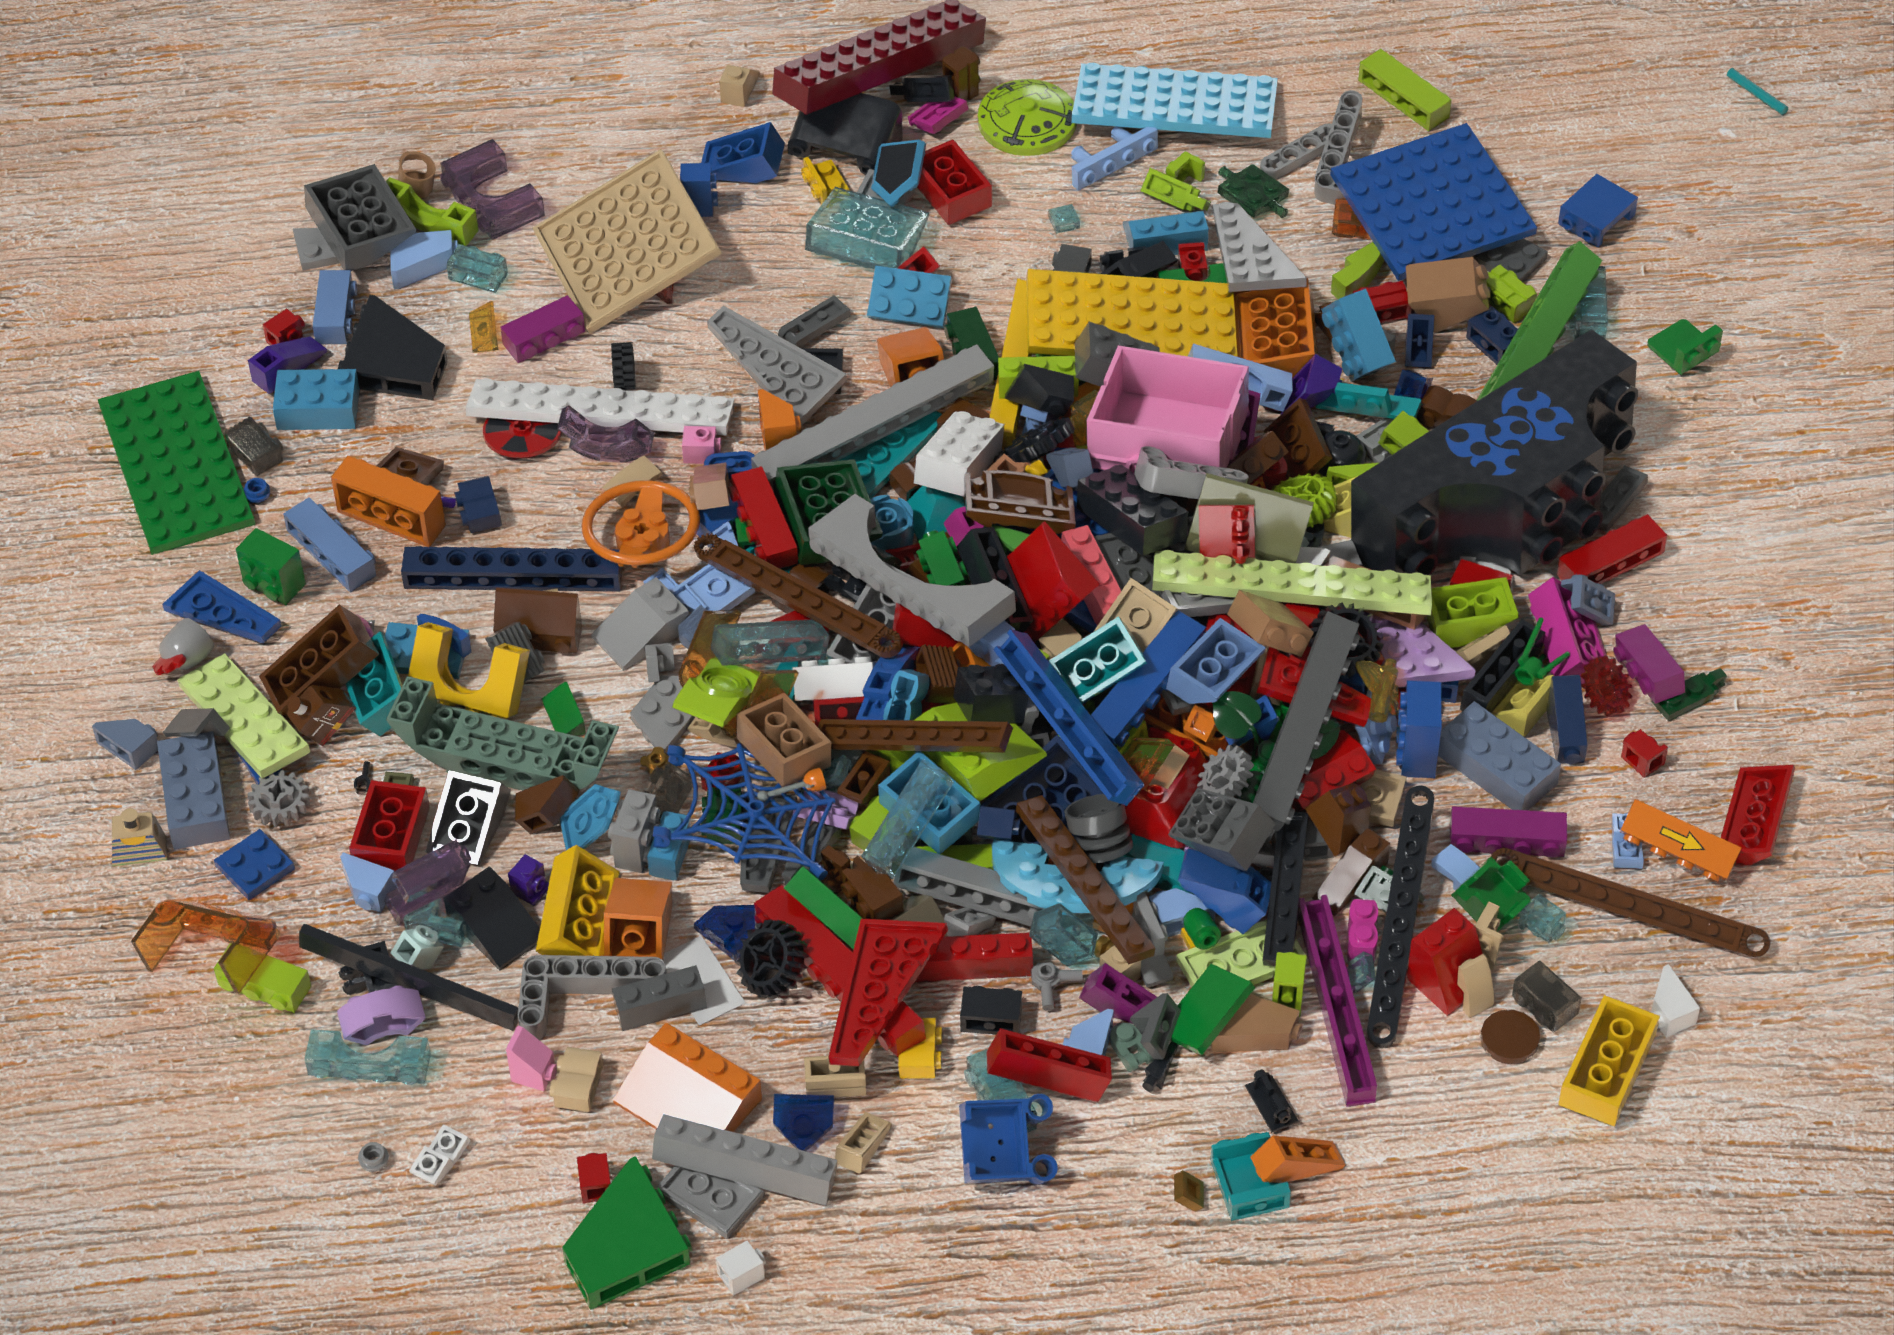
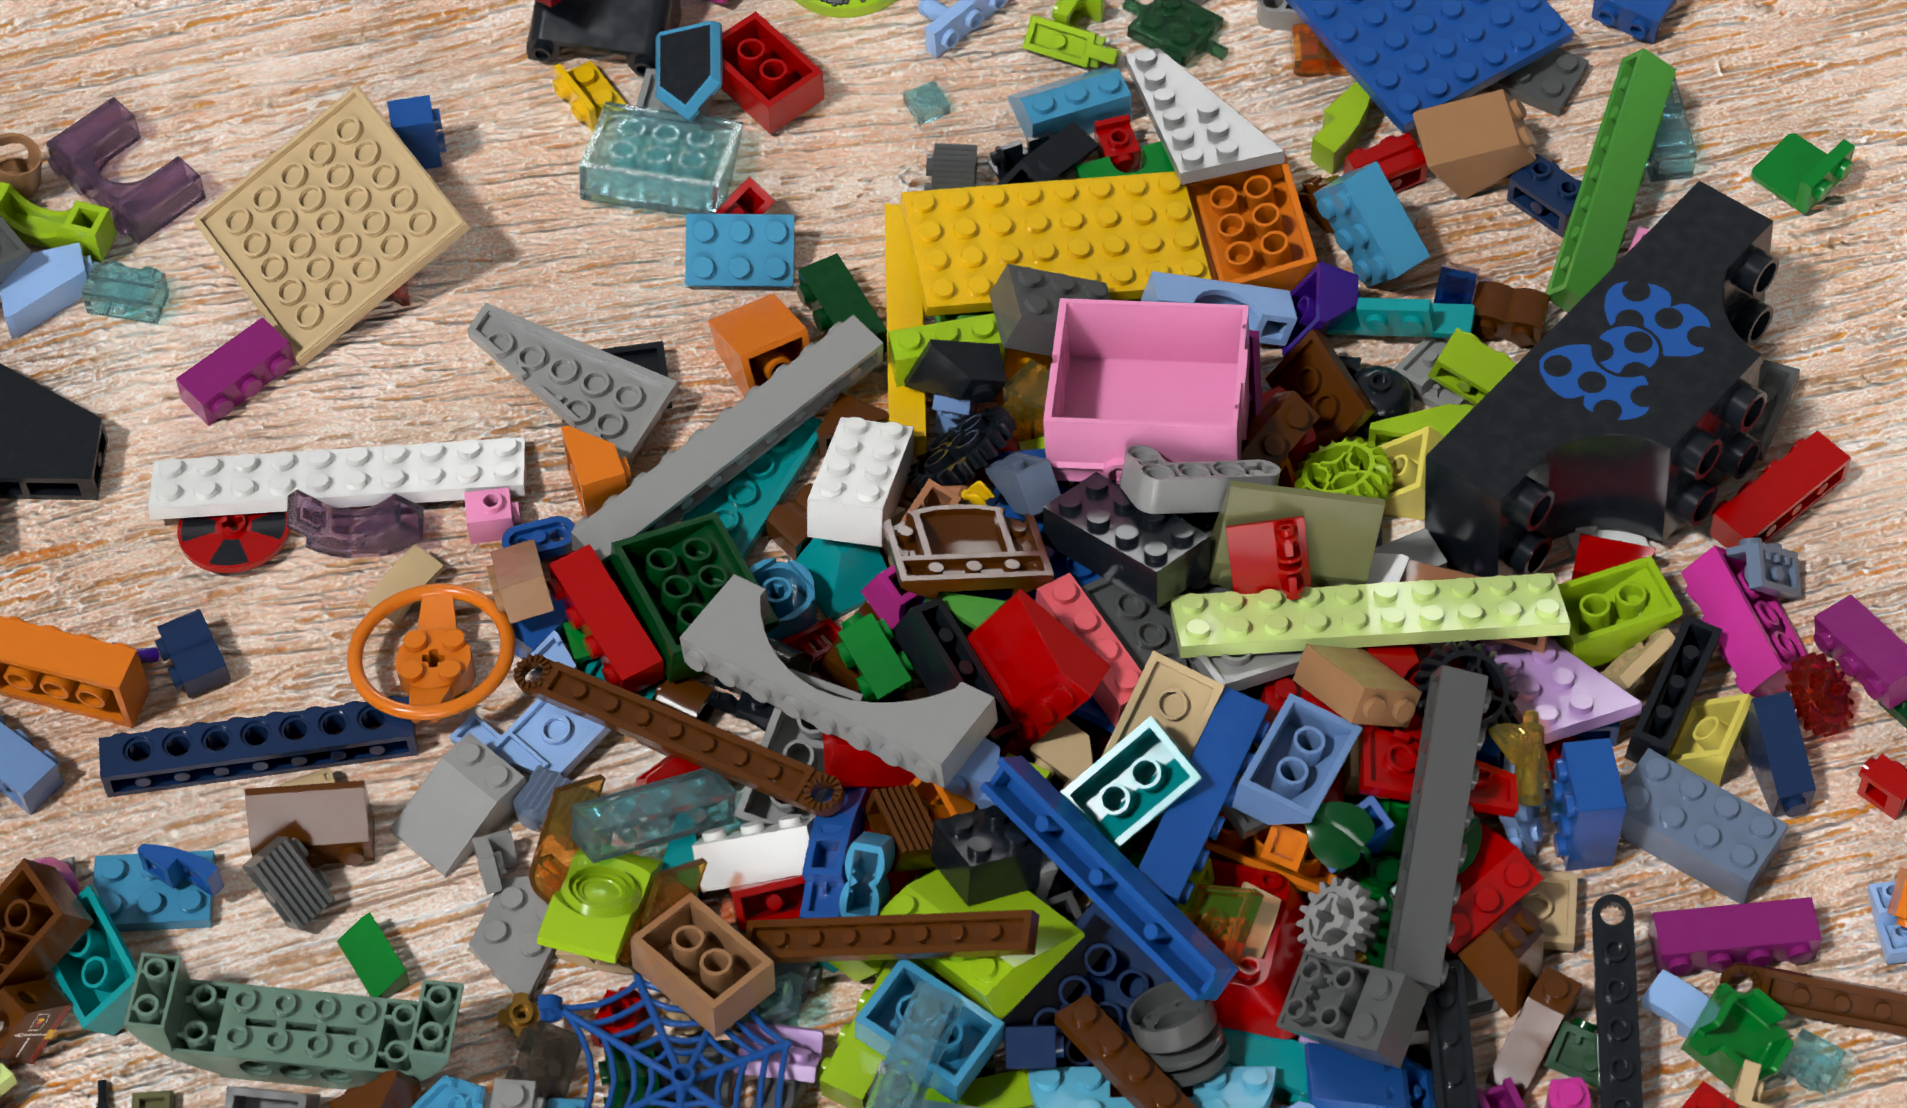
camera: 10 degrees left, 5 degrees up
(412, 465) = (85, 610): reddish brown plate -> none
(483, 328) = (151, 381): clear yellow slope -> none
(500, 692) = (172, 928): yellow arch -> none
(623, 365) = (360, 413): black tyre -> none
(746, 155) = (470, 71): blue slope -> none
(812, 781) = (756, 1021): hinge -> none
(815, 322) = (615, 306): dark grey plate -> none
(864, 778) = (827, 1001): reddish brown slope -> none
(1419, 340) = (1448, 216): dark blue slope -> none
(1510, 294) = (1557, 132): lime brick -> none
(1532, 668) = (1714, 684): green plant -> none

